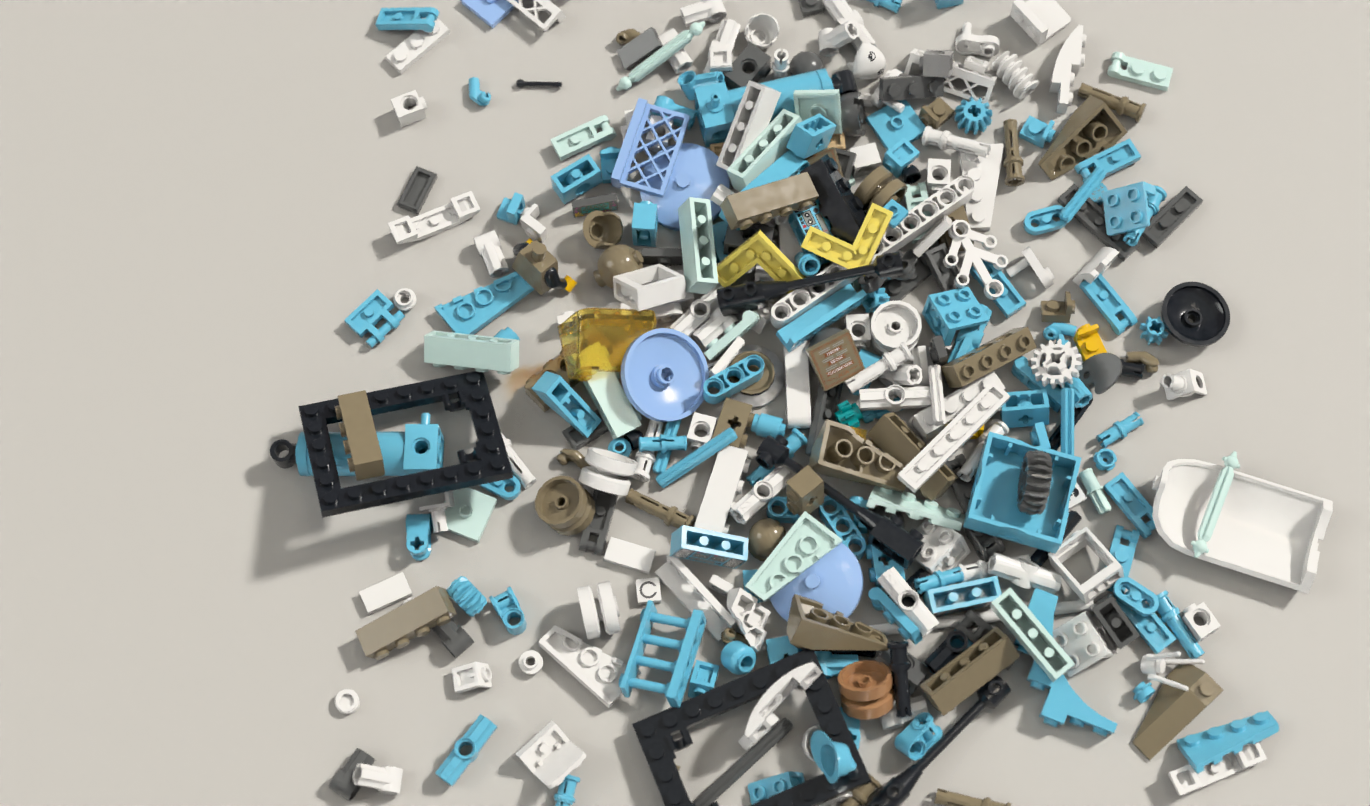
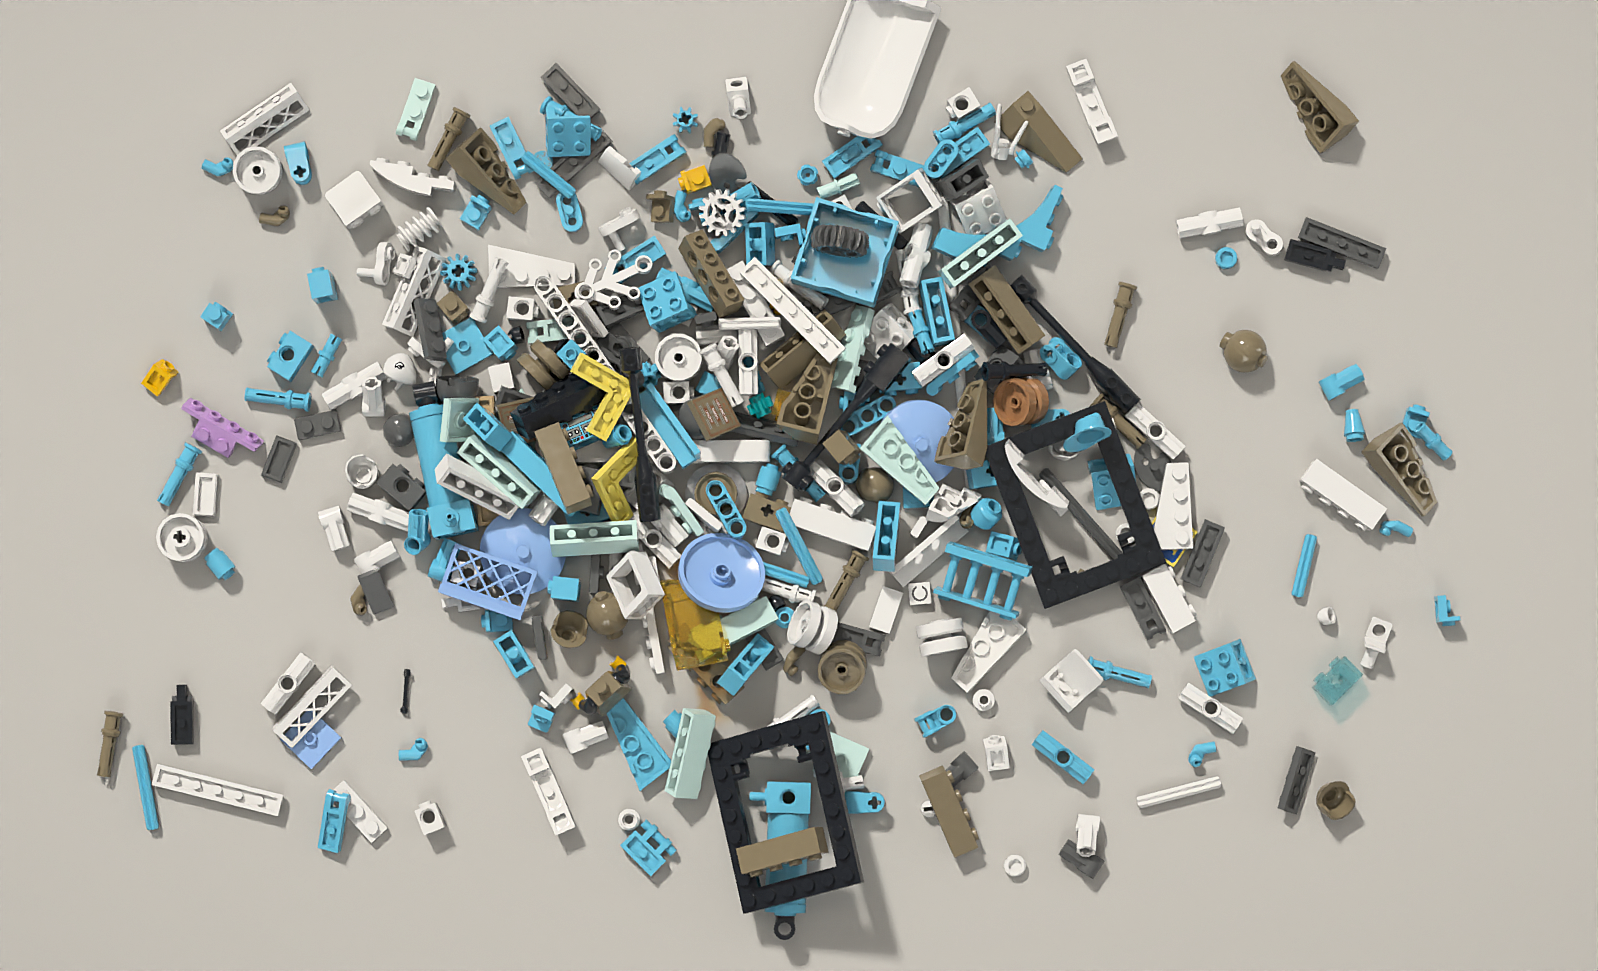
camera: 90 degrees left, 15 degrees up
(386, 593) = (915, 832): white tile -> none
(417, 190) = (515, 809): dark grey tile -> none
(466, 596) = (924, 757): medium azure gear -> none
(583, 137) = (467, 649): light aqua plate -> none
(661, 56) = (387, 571): light aqua wheel -> none
(662, 443) = (785, 576): medium azure pin -> none
(720, 59) = (394, 511): white tile -> none
(780, 64) = (398, 450): white pin -> none
(936, 63) = (409, 303): light grey brick -> none
(1013, 160) = (471, 237): dark tan pin -> none
(1119, 429) = (779, 159): medium azure pin -> none
(1200, 304) = (670, 68): black dish -> none
(1215, 504) = (859, 81): light aqua wheel -> none
(1218, 741) = (1072, 101): medium azure wing -> none

